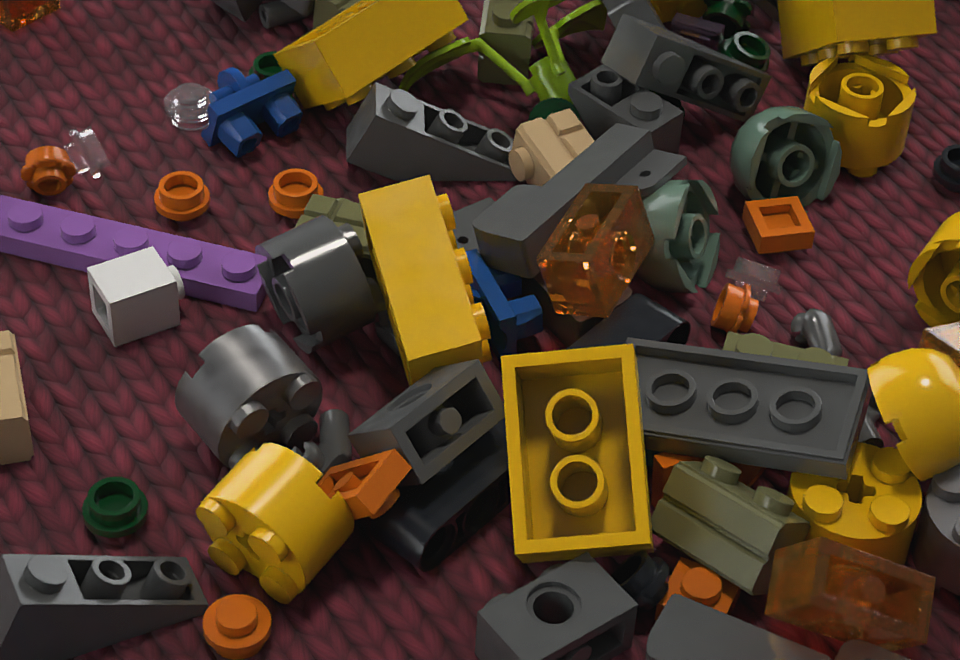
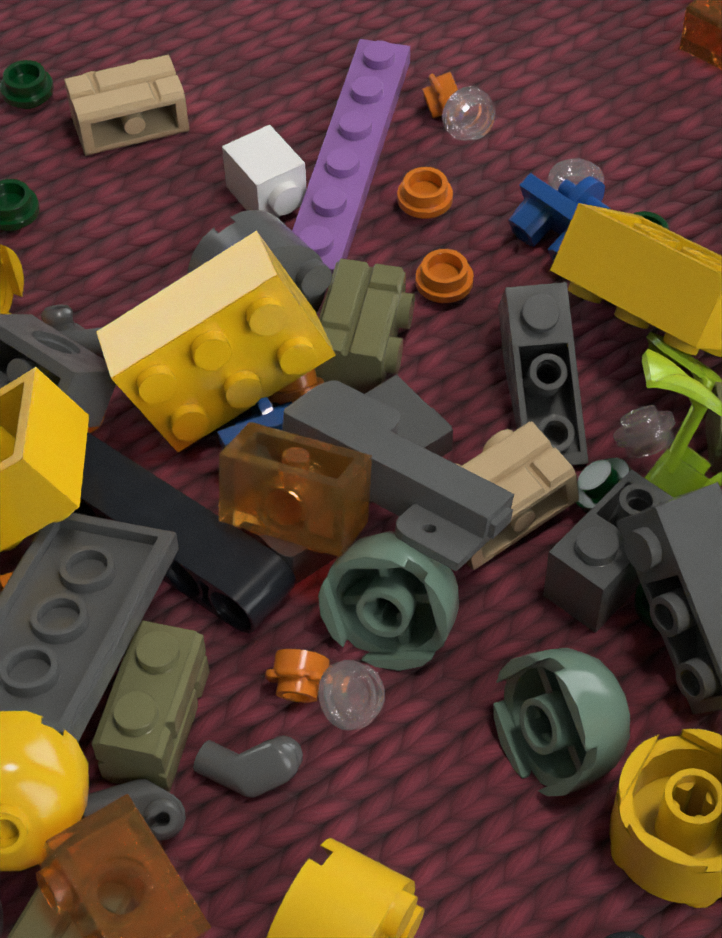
camera: 90 degrees right, 10 degrees up
(249, 395) = (104, 255): flat silver brick -> none
(499, 97) = (645, 431): none -> clear plate
(778, 224) = (460, 726): orange plate -> none

